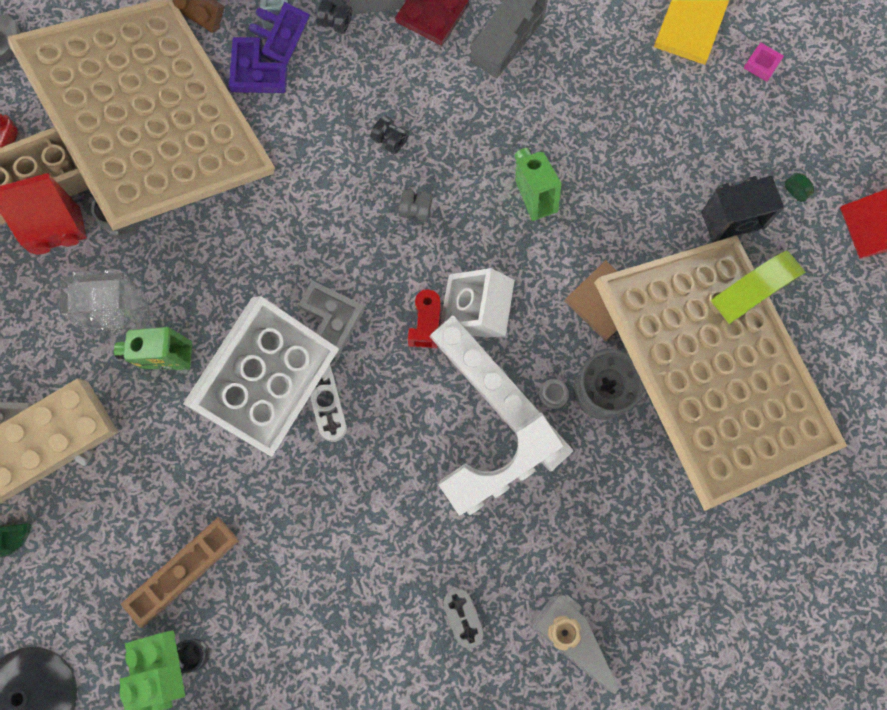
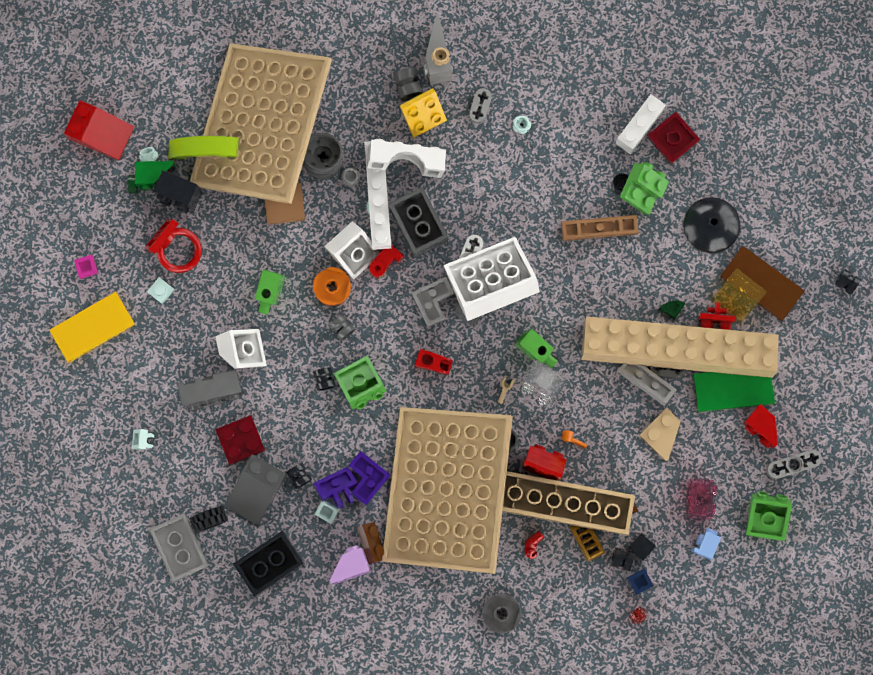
camera: 140 degrees left, 5 degrees up
(41, 278) = (567, 436): none -> orange hand
(162, 283) = (505, 388): none -> tan hand
(273, 244) = (433, 362): none -> red leg
(343, 159) = (360, 383): none -> bright green plate
(382, 642) = (521, 129): none -> light aqua plate
(420, 394) = (418, 222): none -> dark grey brick
(472, 230) = (325, 278): none -> orange plate
(510, 98) = (241, 348): none -> white slope
(529, 544) = (423, 112): none -> yellow plate
(580, 571) = (407, 80): none -> dark grey wheel
(659, 99) = (160, 290): none -> light aqua plate
(707, 145) = (164, 237): none -> red tile
(797, 211) = (148, 173): none -> green slope
(813, 233) = (148, 154): none -> light aqua plate

